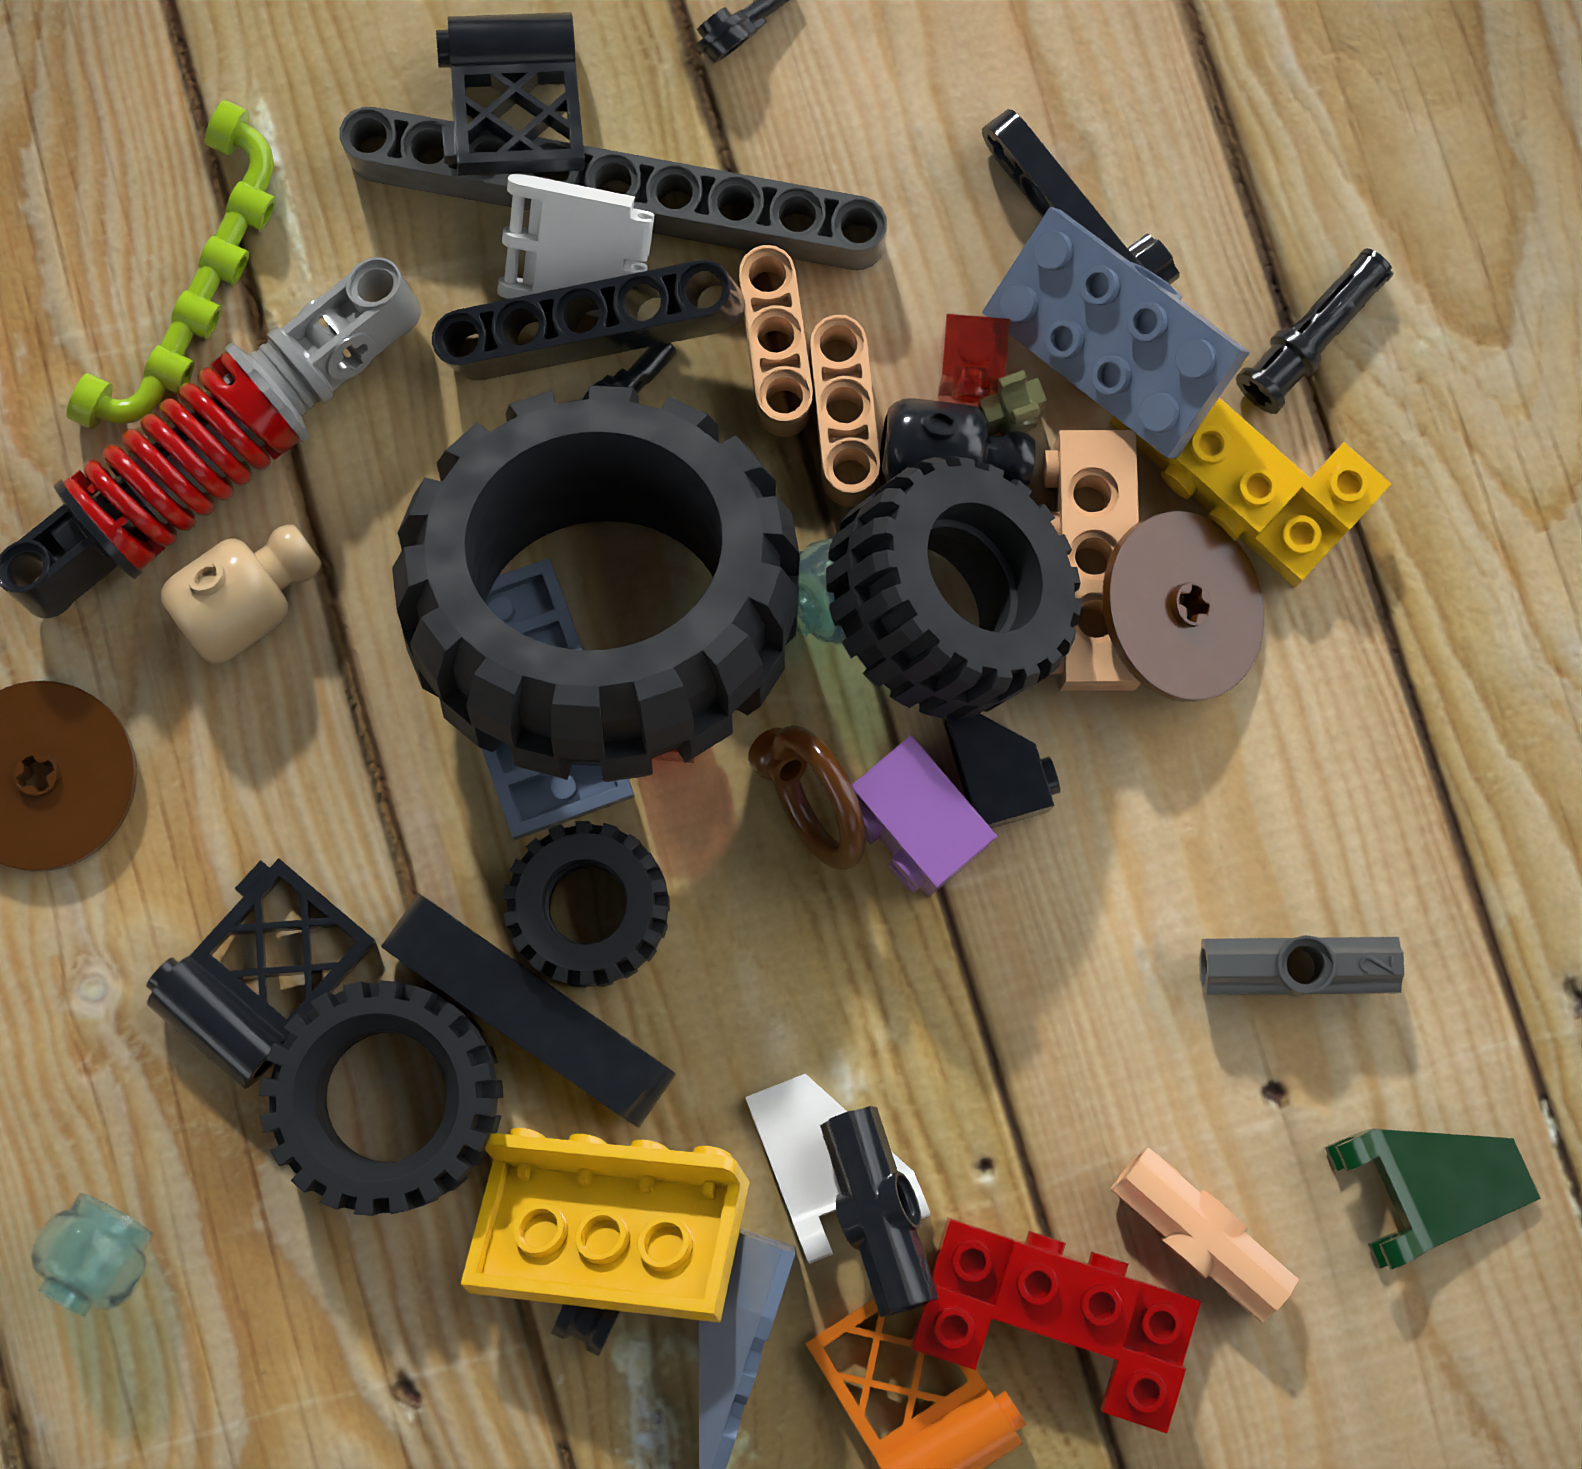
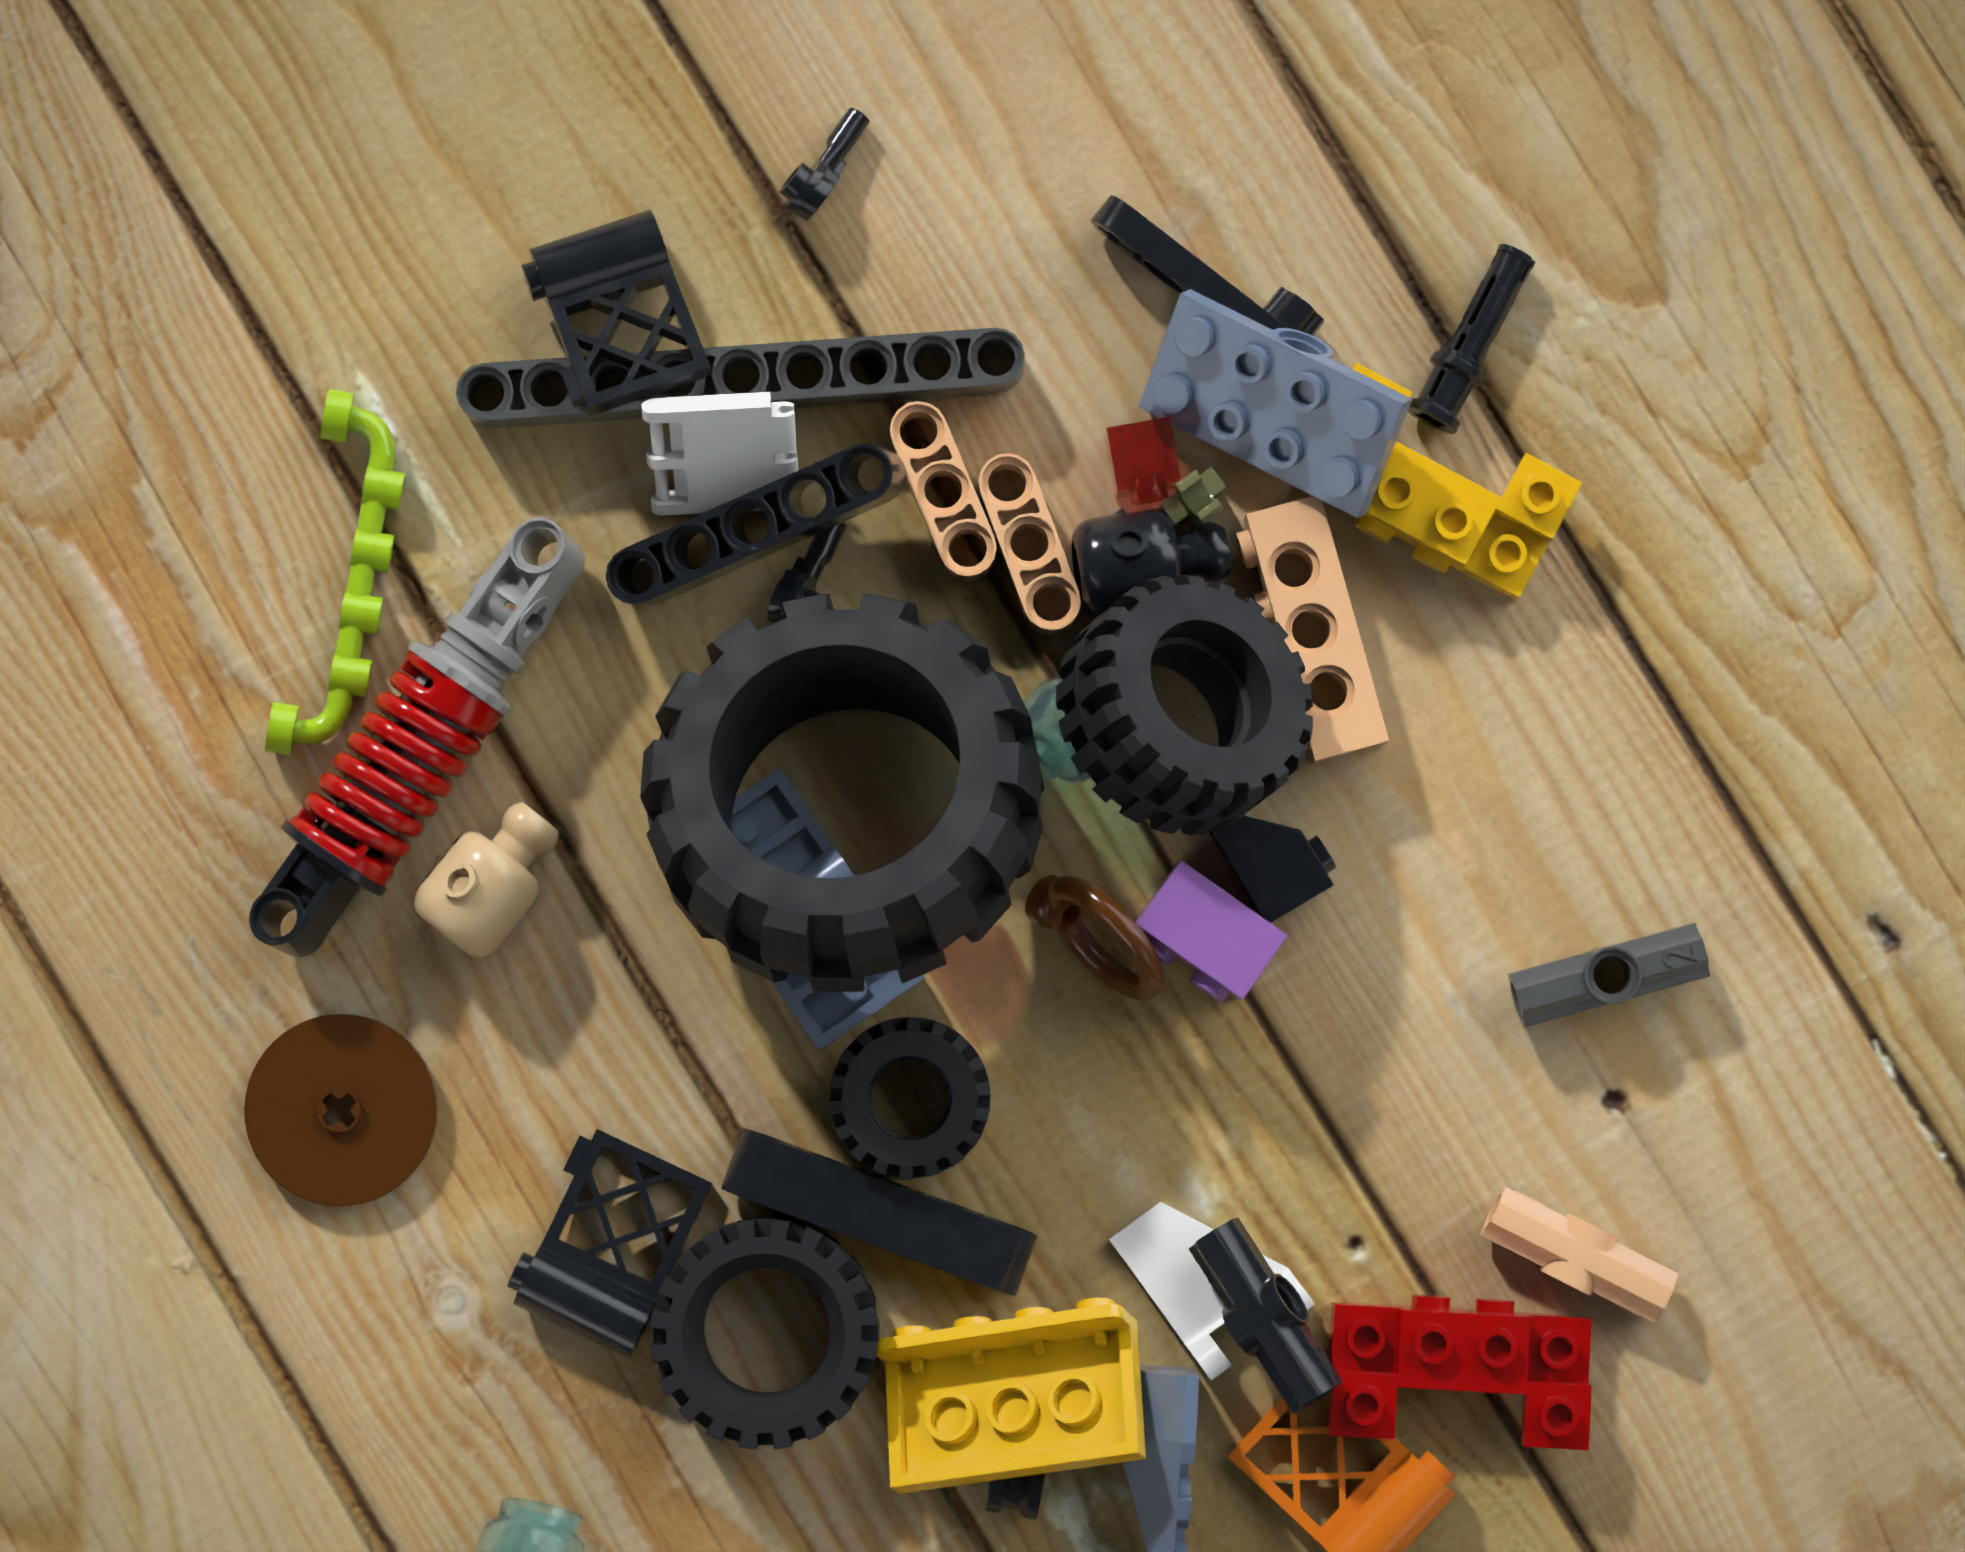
camera: 15 degrees left, 5 degrees up
(1149, 628) = (1382, 688): piece -> none
(1437, 1184) = (1790, 1148): dark green flag -> none

